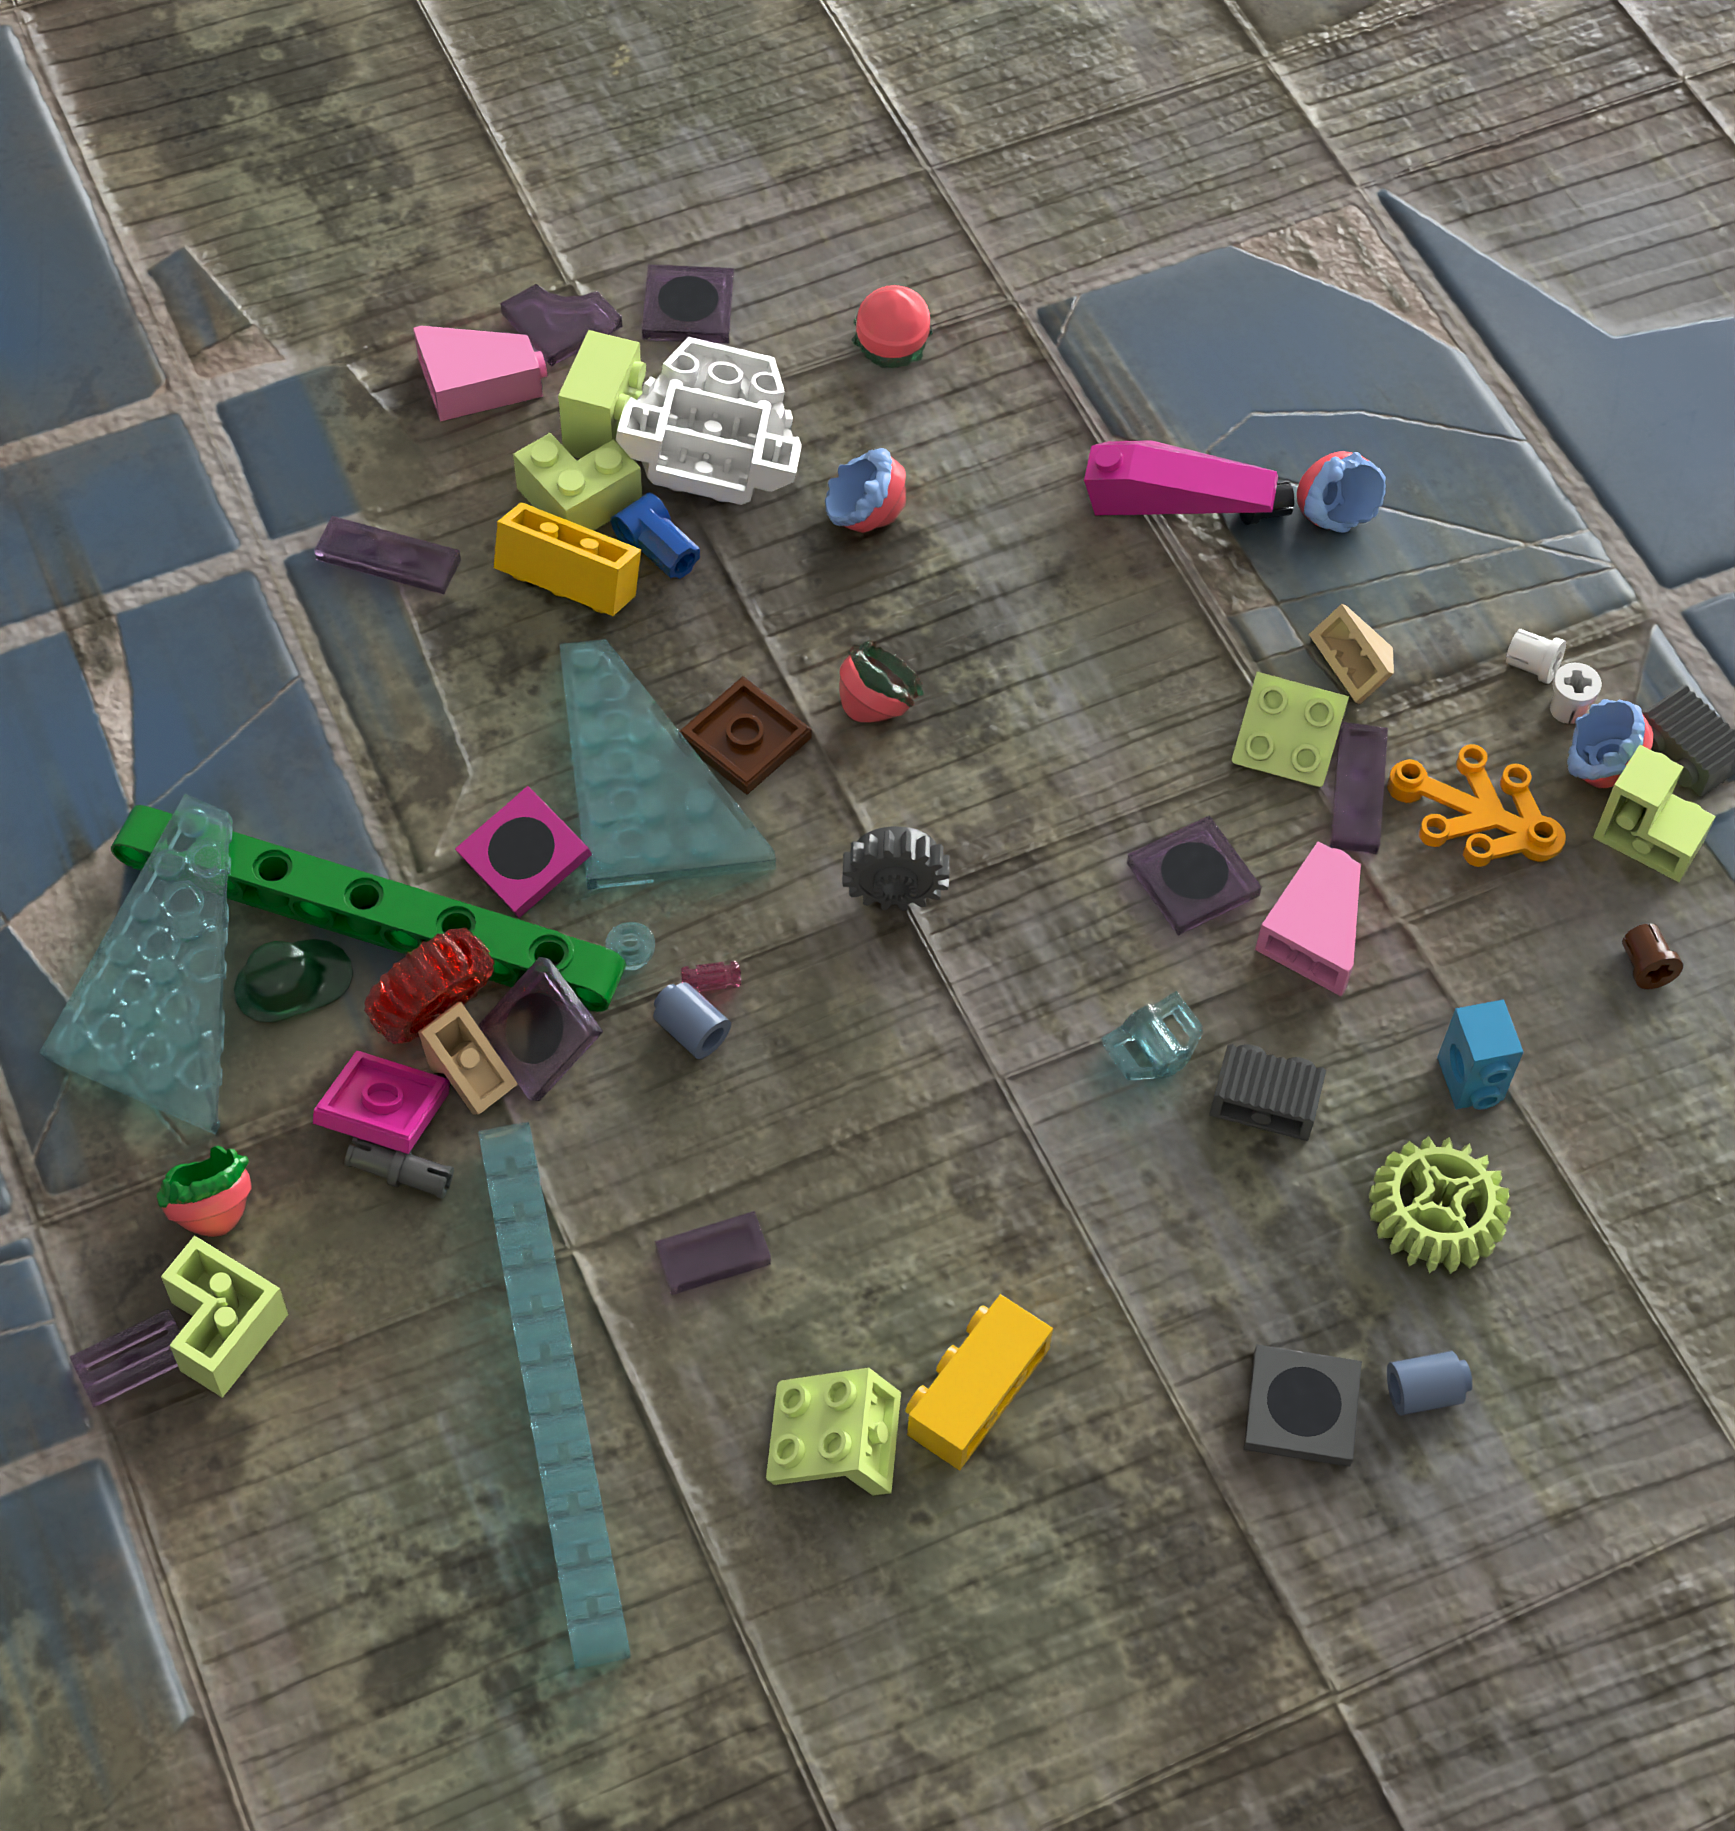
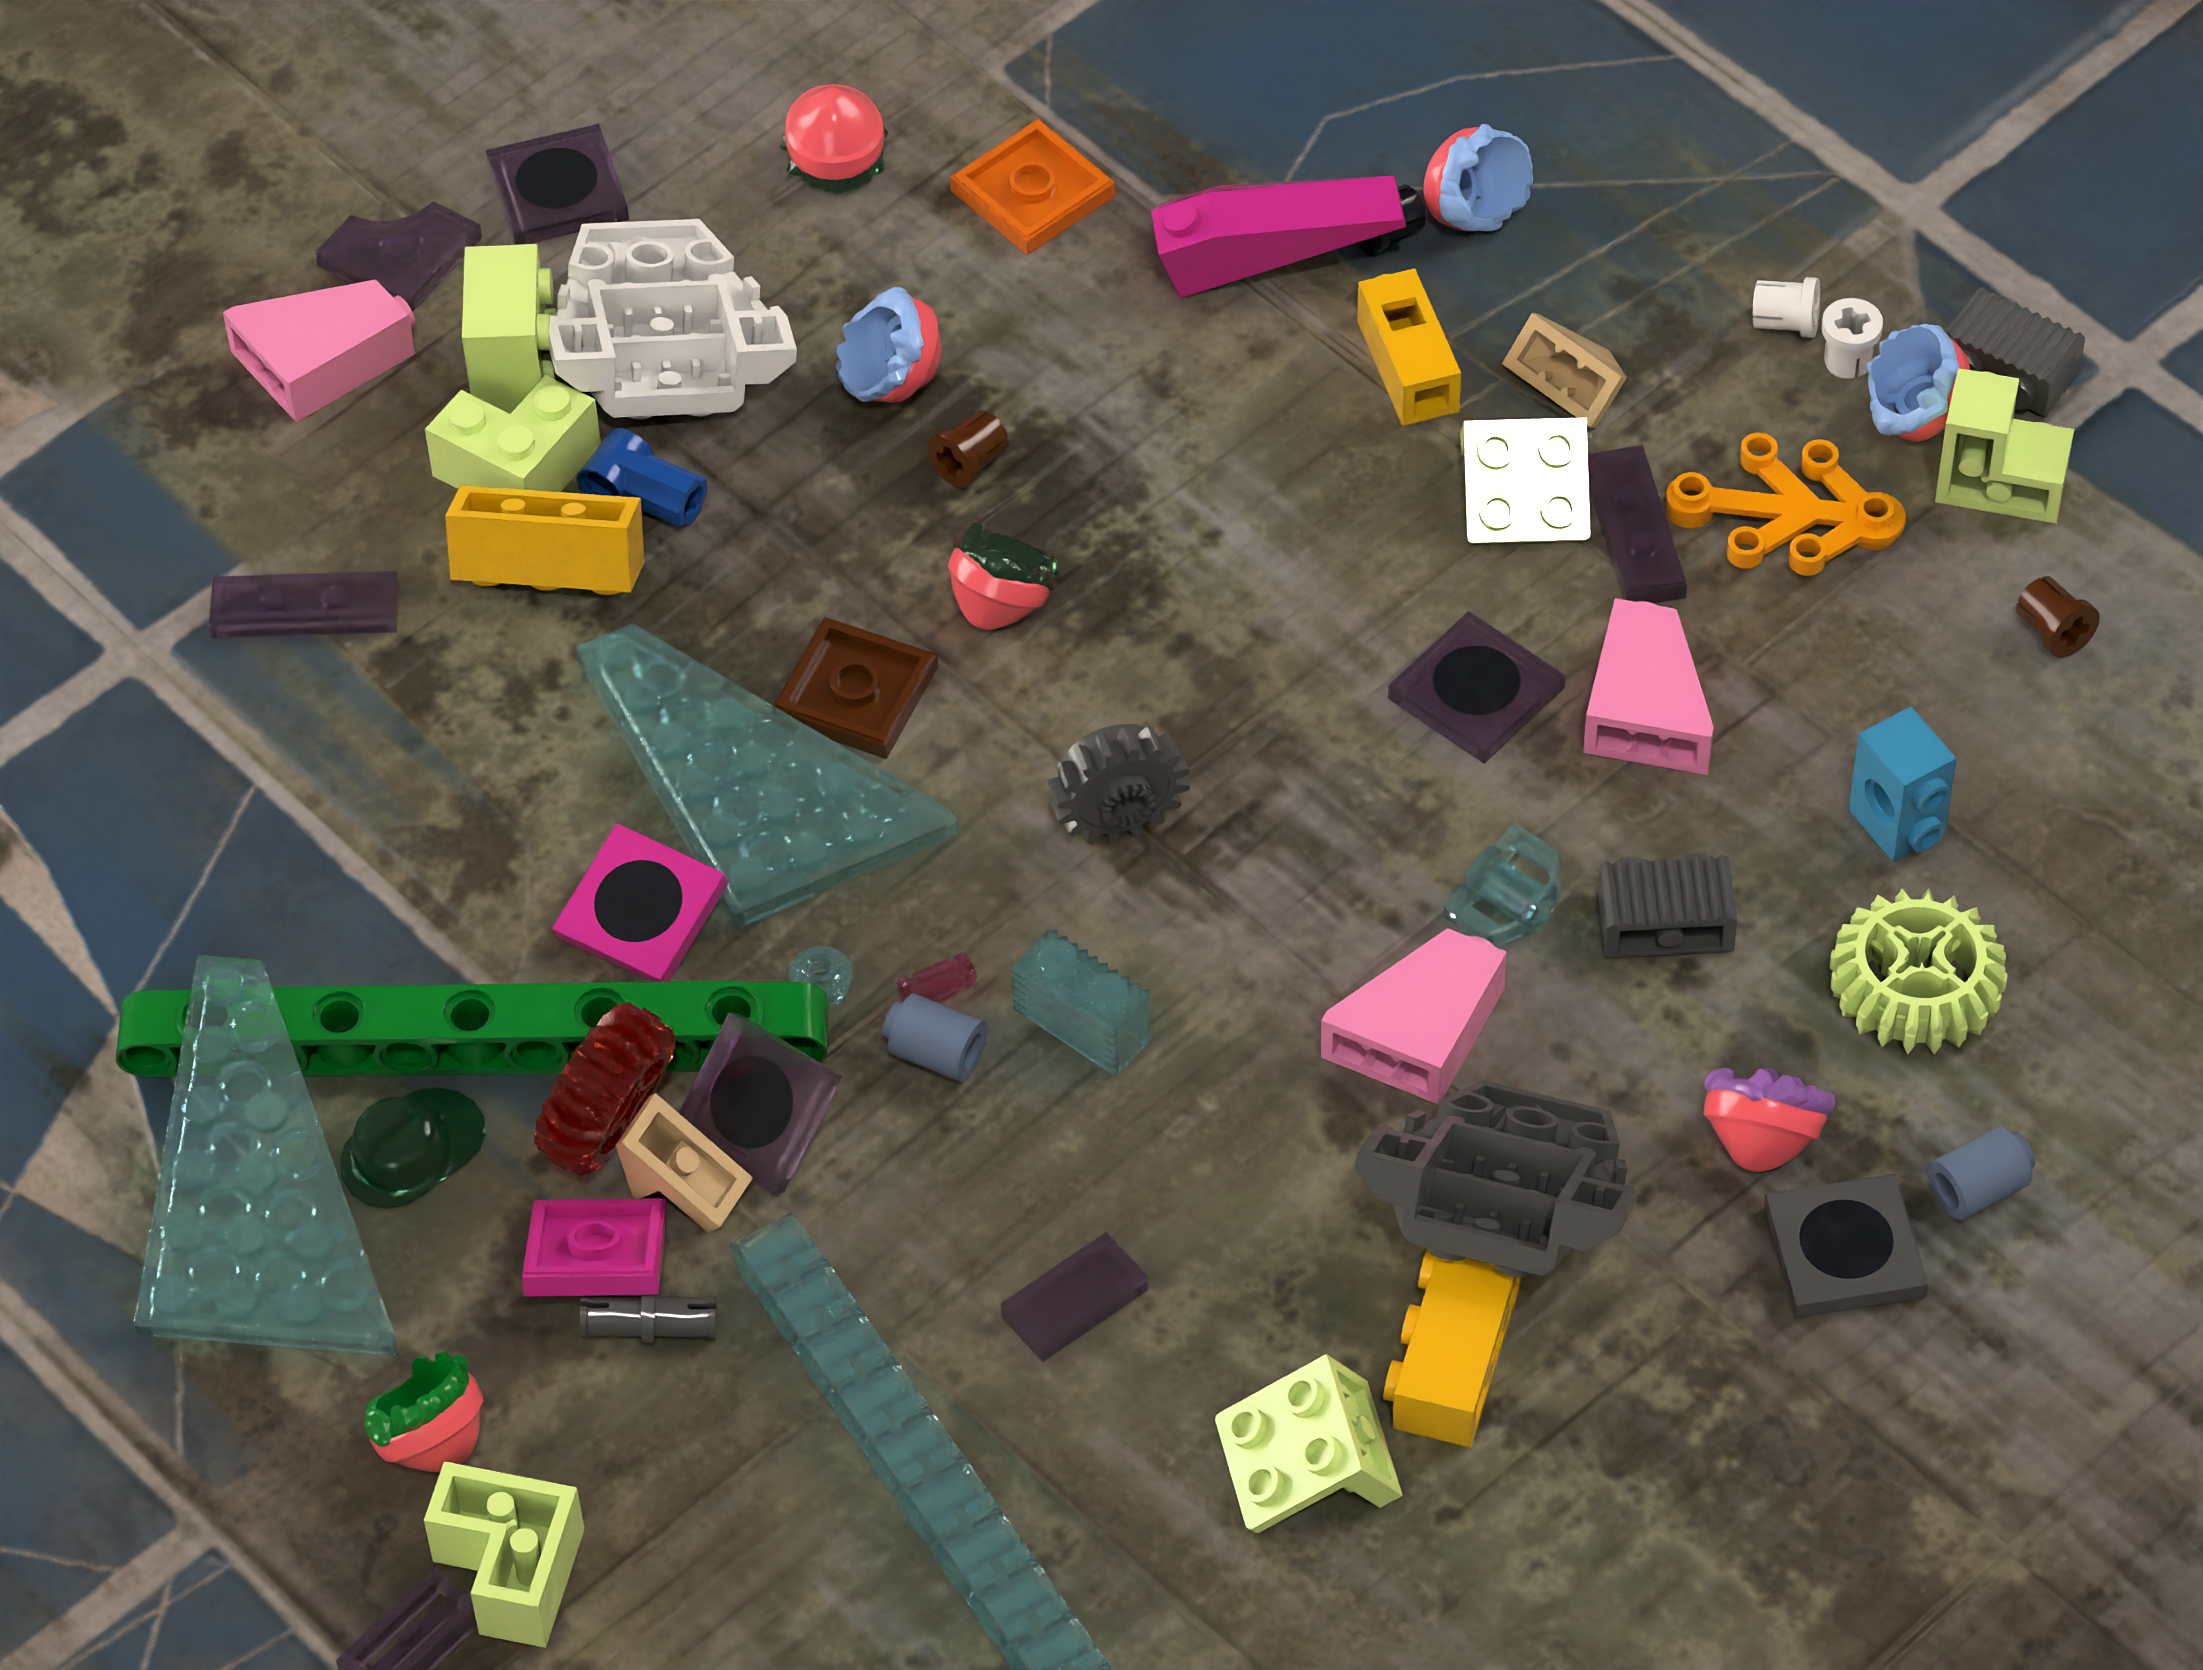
camera: 15 degrees left, 5 degrees down
(806, 1027) = (1082, 1002): none -> clear light blue brick
(895, 581) = (967, 448): none -> reddish brown bush
(1021, 402) = (1032, 186): none -> orange tile
(1051, 1117) = (1418, 1015): none -> bright pink slope
(1055, 1270) = (1502, 1178): none -> dark grey wedge
(1243, 602) = (1409, 347): none -> yellow brick
(1278, 1283) = (1764, 1117): none -> coral hair

